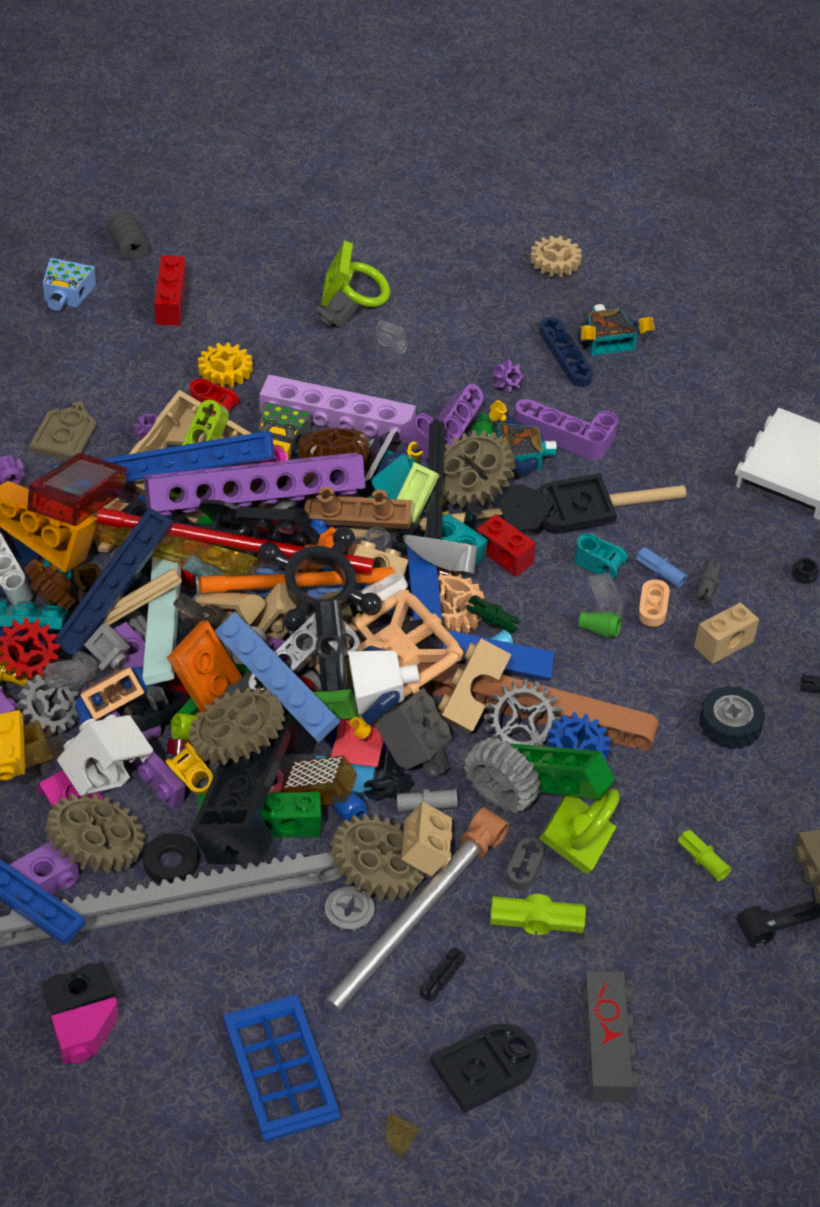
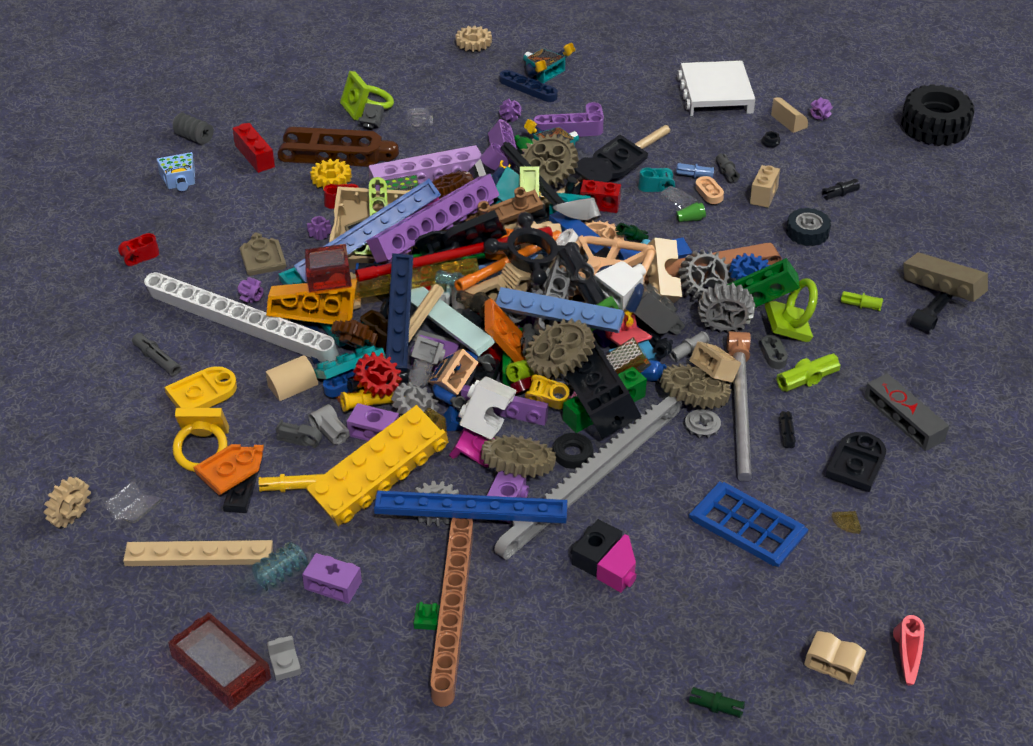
camera: 30 degrees left, 5 degrees down
(250, 309) = (312, 142): none -> reddish brown piece

